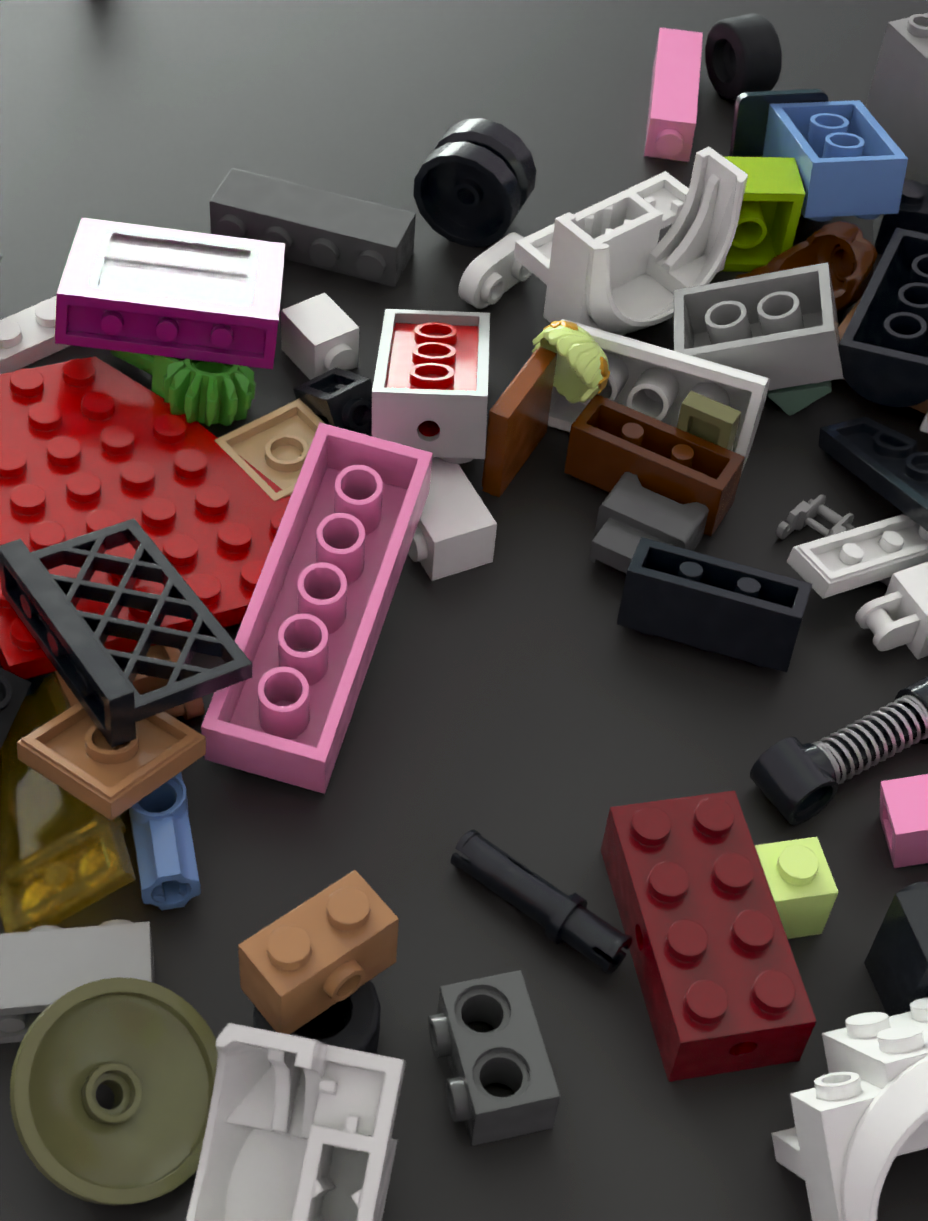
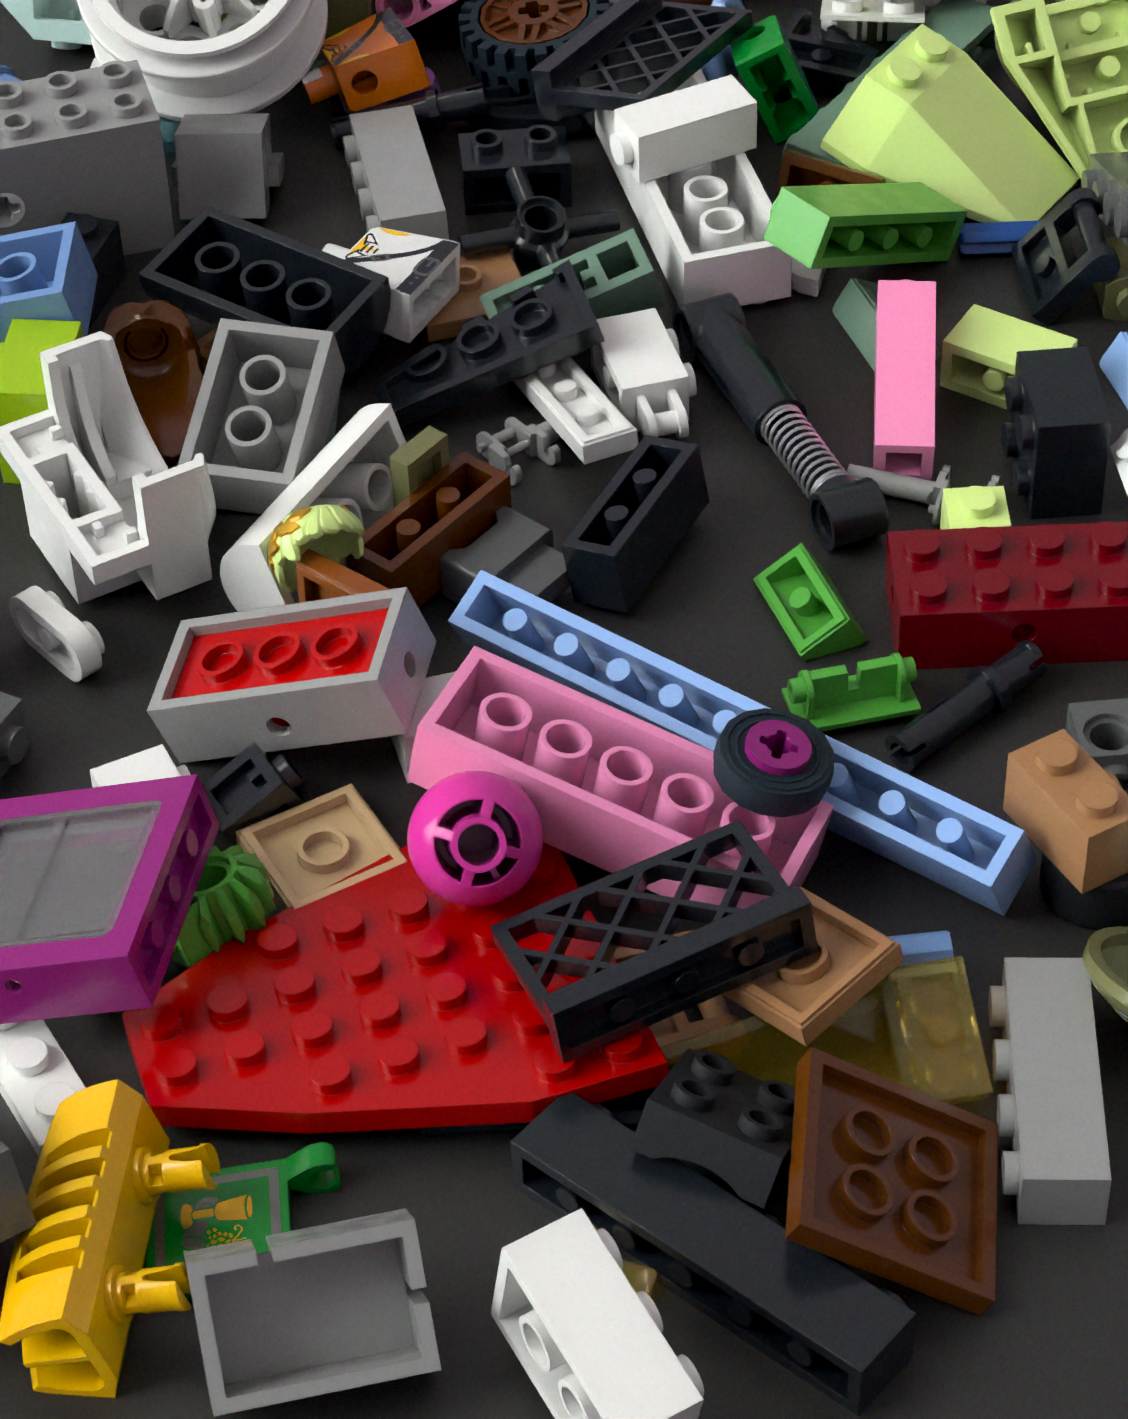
camera: 75 degrees left, 5 degrees down
(230, 497) = (475, 838): none -> dark pink brick
(339, 714) = (773, 762): none -> black wheel
(425, 702) = (871, 799): none -> light blue brick
(534, 802) = (838, 701): none -> bright green hinge
(670, 765) = (809, 605): none -> bright green slope
(864, 861) = (912, 487): none -> light grey piece

